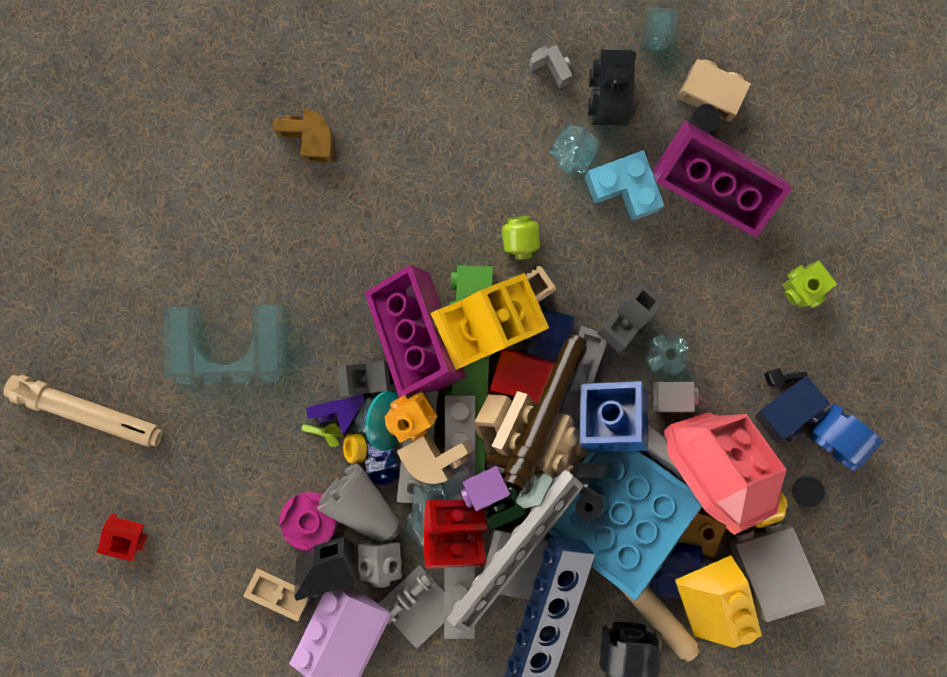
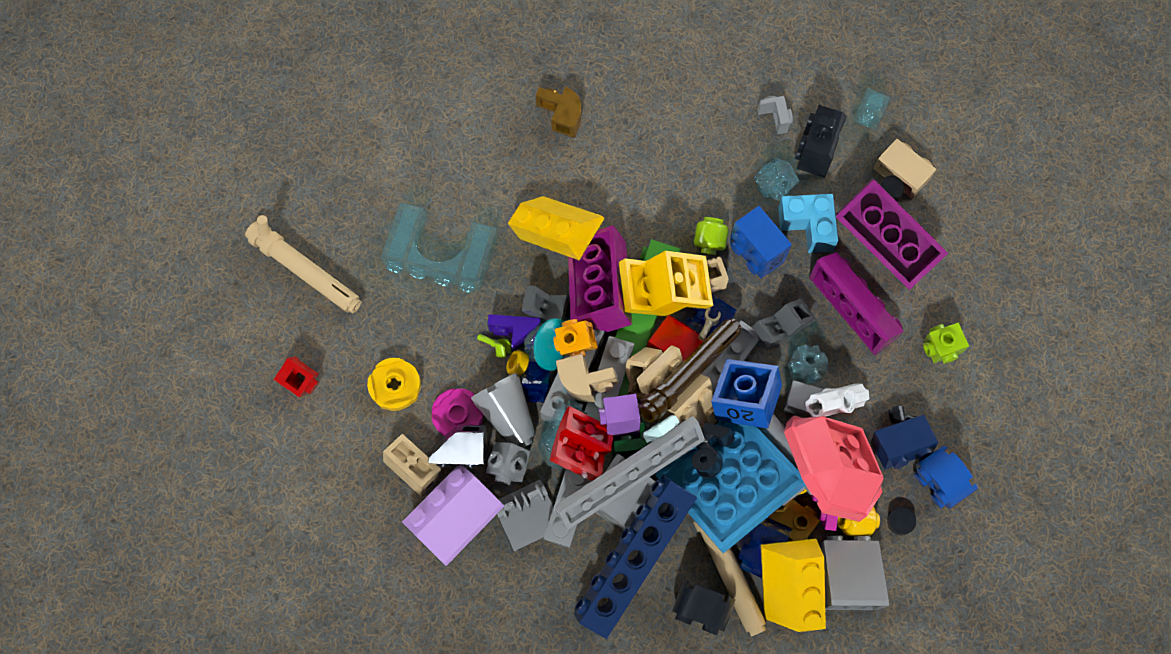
camera: 10 degrees right, 15 degrees down
(224, 527) = (381, 377): none -> yellow plate
(346, 279) = (555, 226): none -> yellow slope
(549, 348) = (708, 324): none -> dark tan hand
(578, 232) = (759, 242): none -> blue brick
(702, 268) = (855, 302): none -> magenta slope
(711, 392) = (837, 400): none -> white piece

